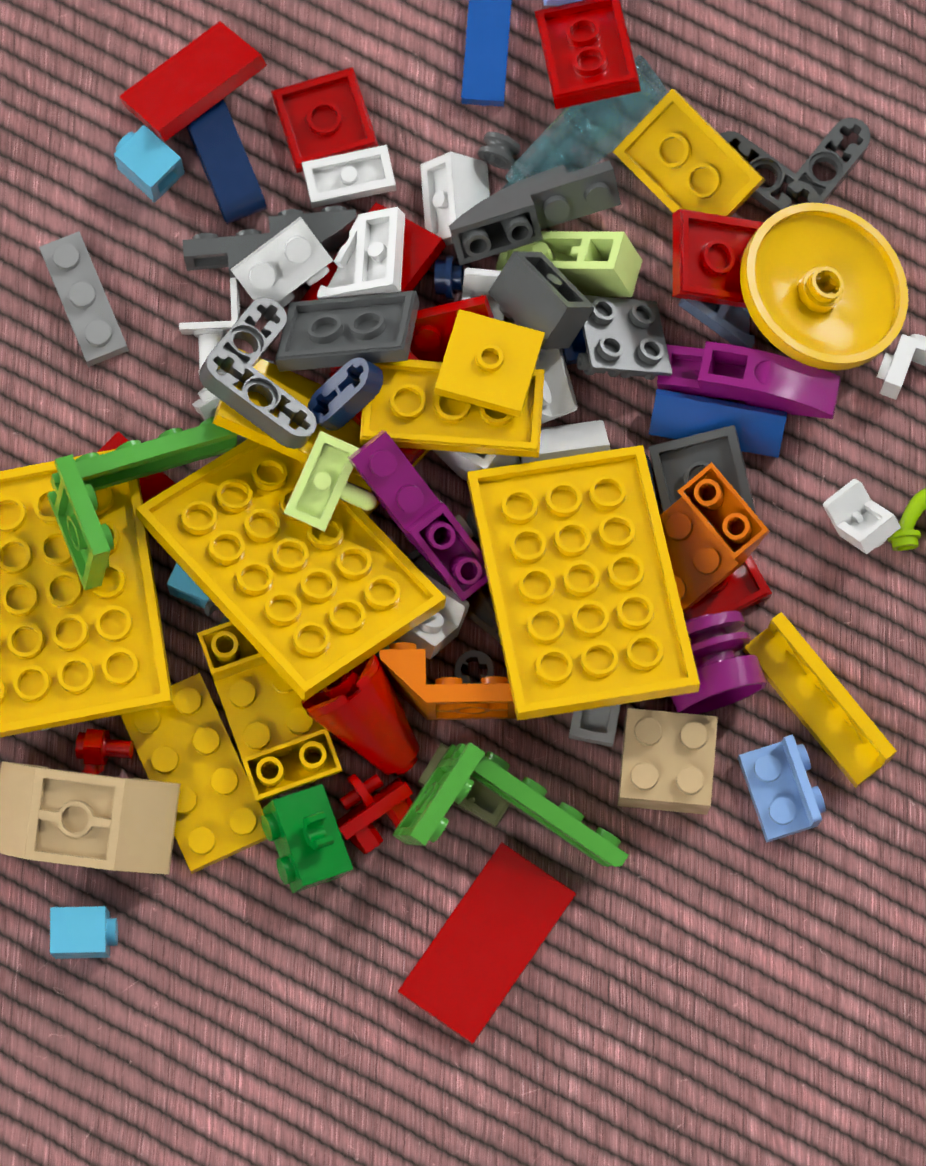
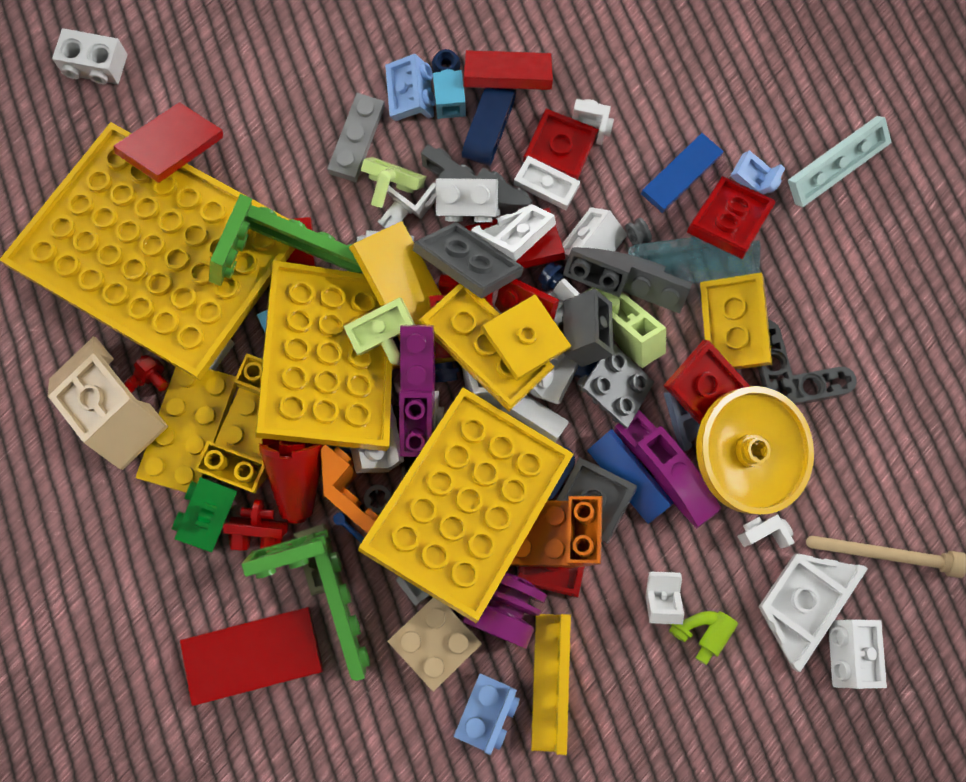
camera: 40 degrees right, 0 degrees up
(82, 932) = (49, 461): medium azure brick -> none
(95, 192) = (409, 88): none -> light blue bracket
(105, 120) = (445, 57): none -> dark blue plate
(173, 308) = (384, 173): none -> yellowish green plate
(240, 368) = (391, 230): dark grey beam -> none
(336, 55) = (595, 115): none -> white bracket
(346, 393) = (433, 289): dark blue beam -> none
(430, 472) = (445, 372): none -> dark blue plate
(451, 728) = (340, 520): none -> blue hinge

